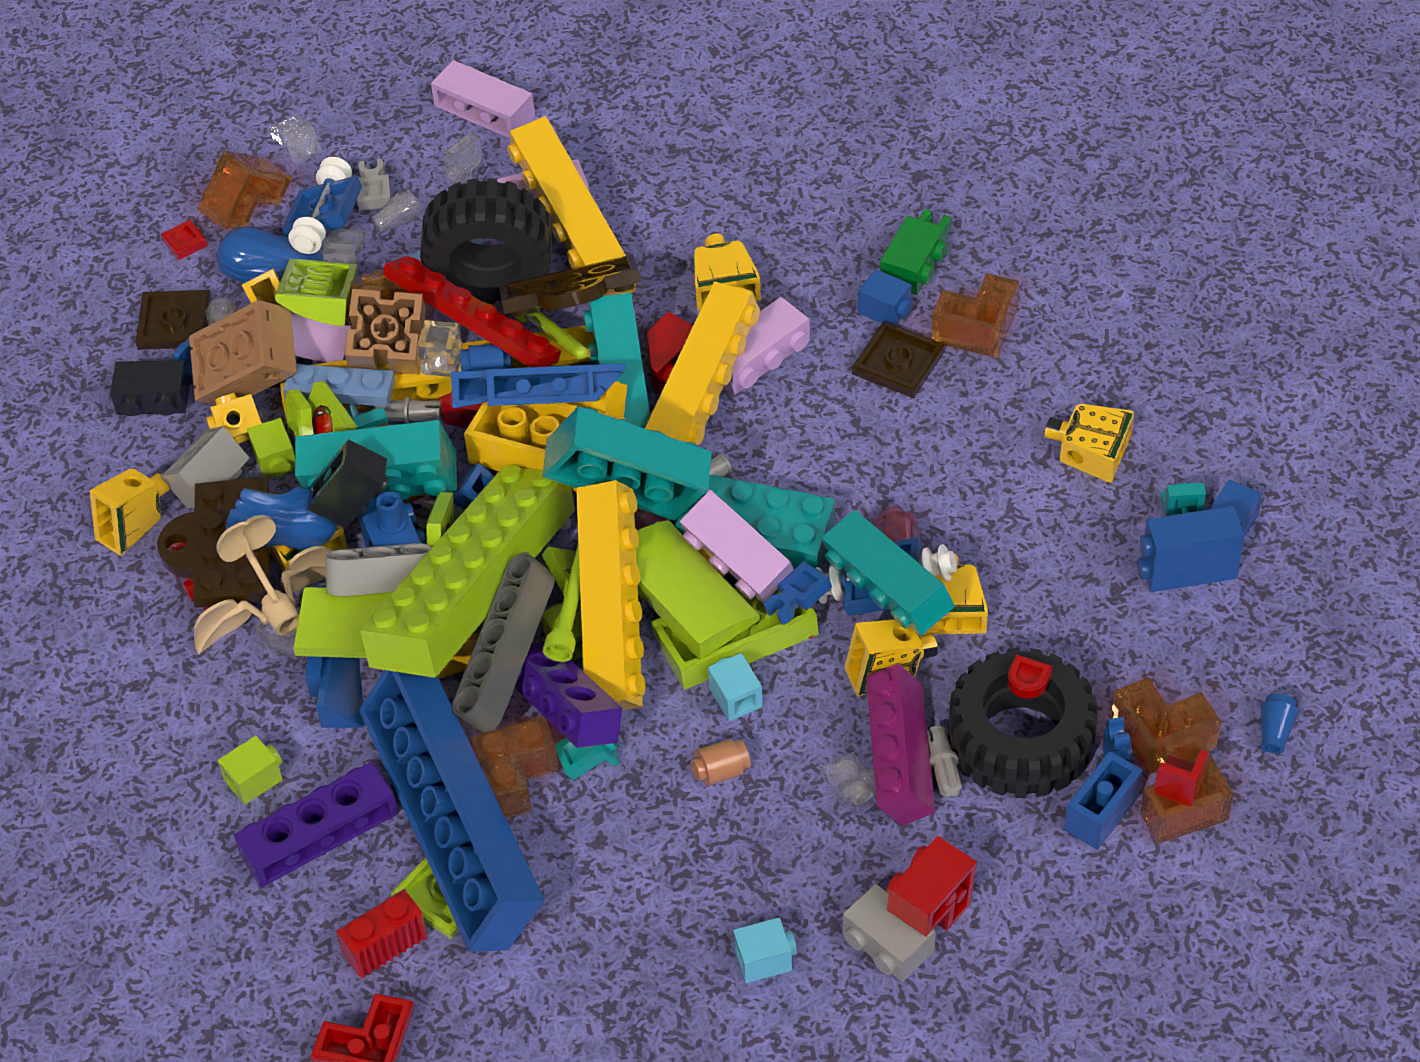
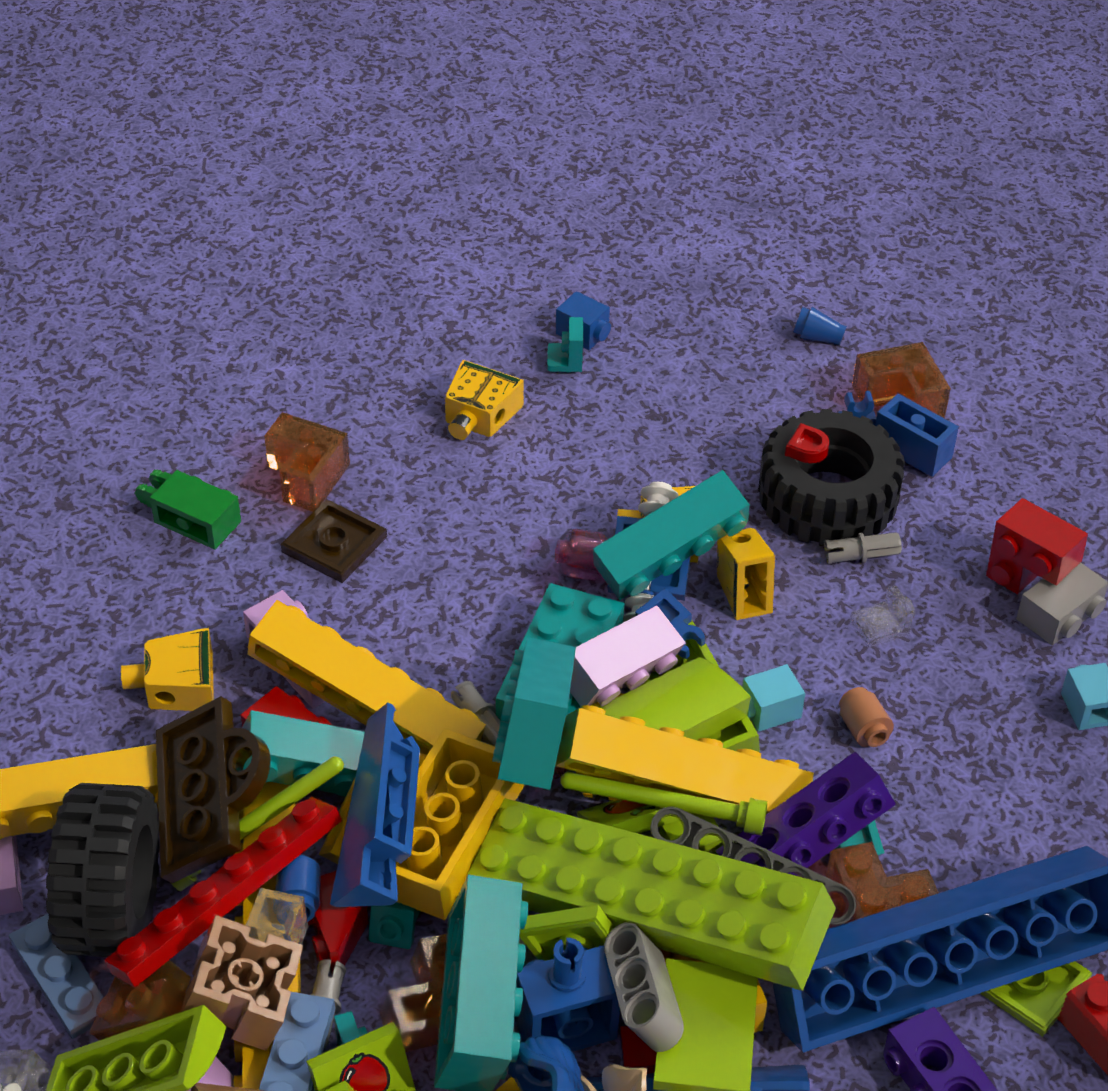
camera: 90 degrees left, 5 degrees down
(348, 484) = (543, 990): black brick -> none
(885, 298) = (253, 536): blue brick -> none
(900, 745) = (853, 567): magenta brick -> none
(1155, 724) = (830, 376): clear orange brick -> none
(1181, 779) = (918, 358): red panel -> none
(1191, 549) = (637, 341): blue brick -> none

